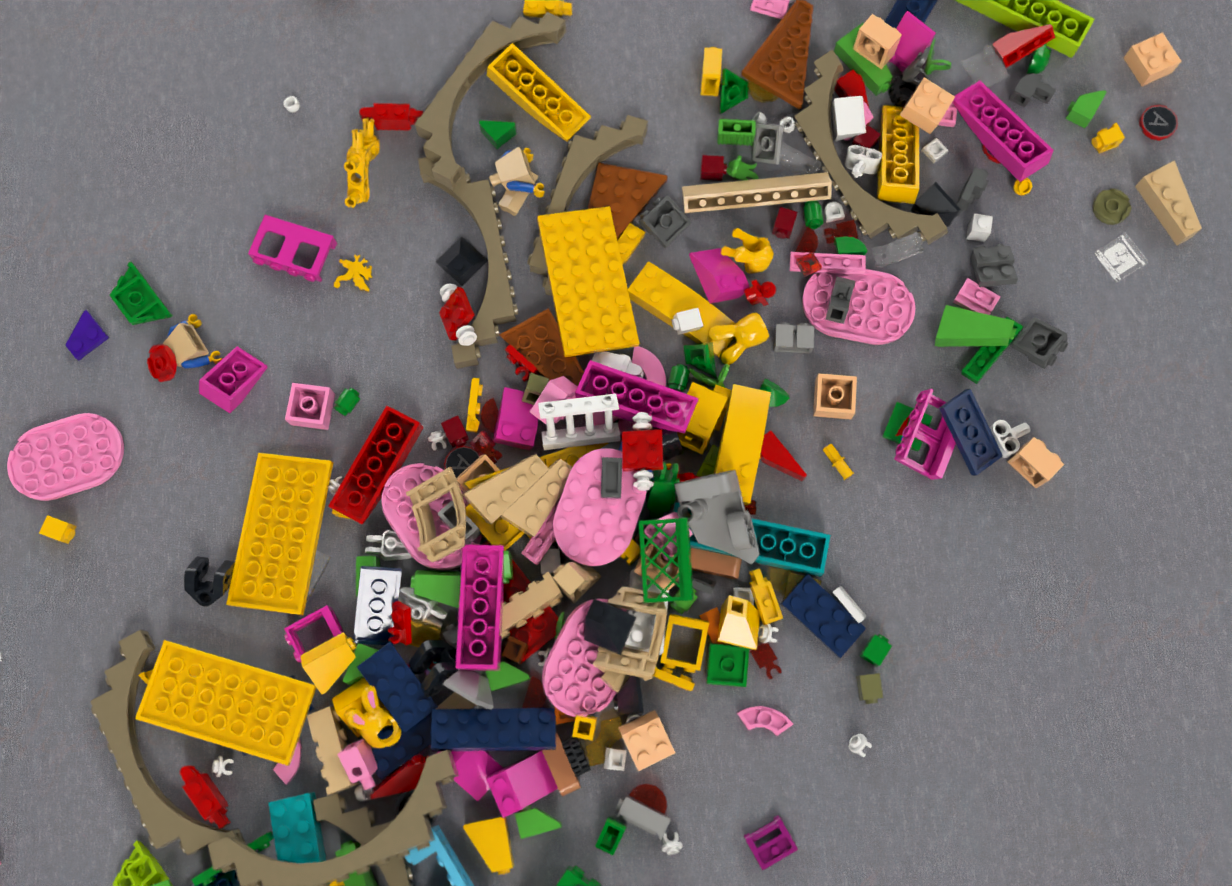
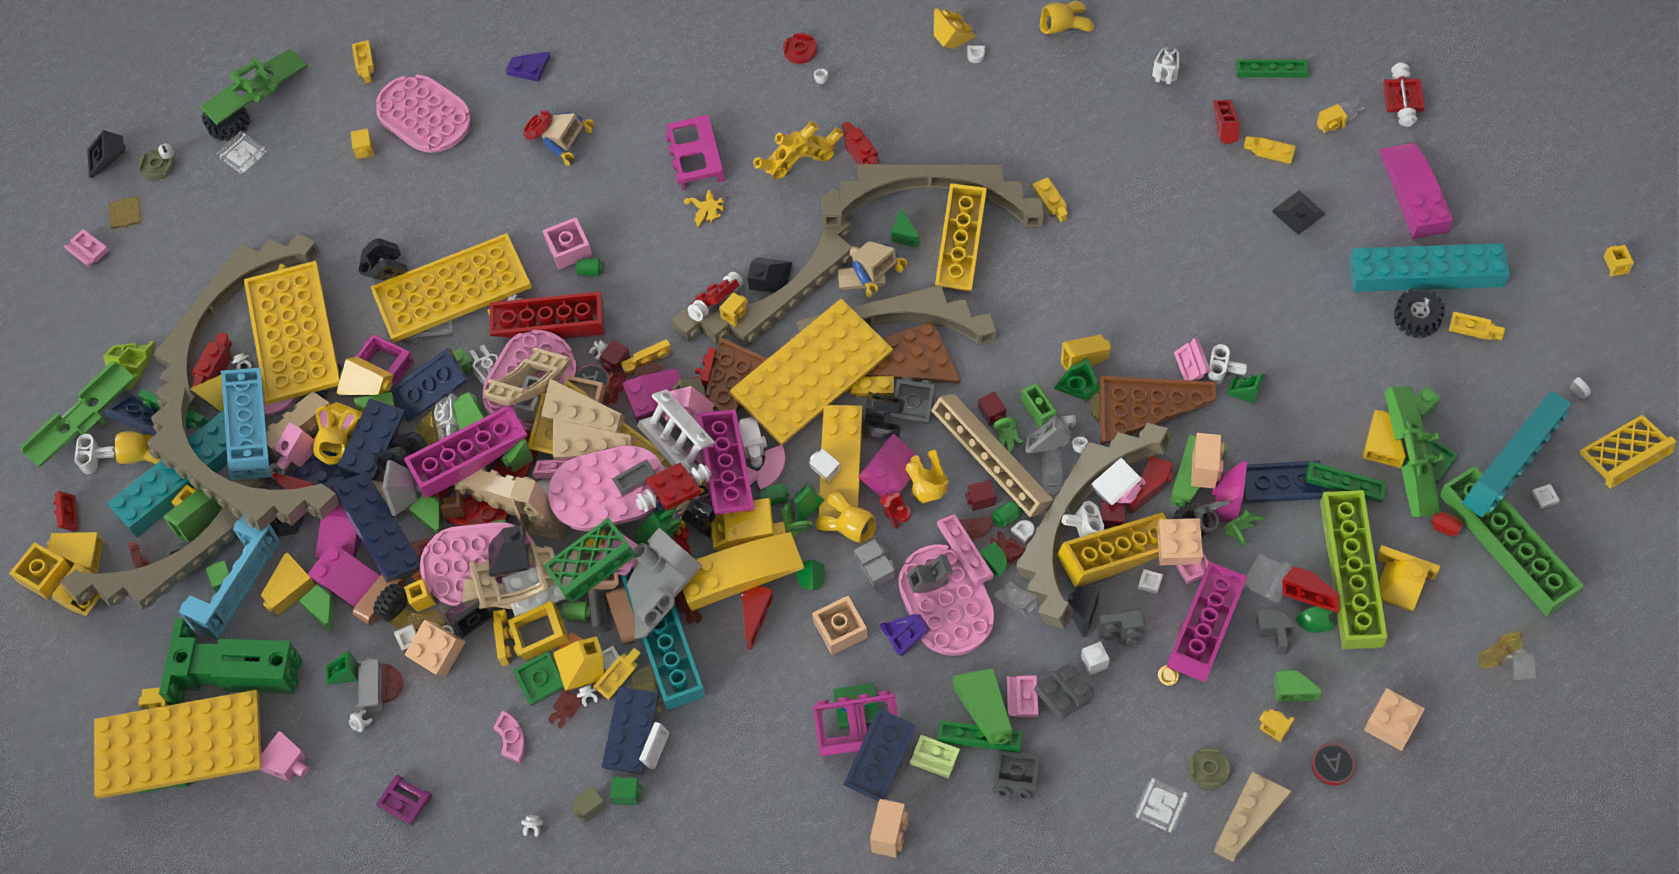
camera: 60 degrees right, 15 degrees down
(137, 298) = (581, 78): green wing -> none
(231, 379) = (556, 179): dark pink slope -> none
(241, 803) = (211, 392): none -> yellow slope
(248, 104) = (800, 48): none -> red tile
(304, 796) = (245, 424): none -> medium azure plate
(402, 624) = (430, 404): red plate -> none
(486, 305) = (733, 308): none -> yellow brick
(655, 251) = (875, 413): none -> black piece
(808, 264) = (949, 531): clear red tile -> none
(838, 461) = (783, 666): yellow axle -> none
(870, 351) = (905, 632): none -> dark purple wing
(990, 392) = (934, 756): none -> yellowish green plate
(1009, 436) = (903, 794): white beam -> none

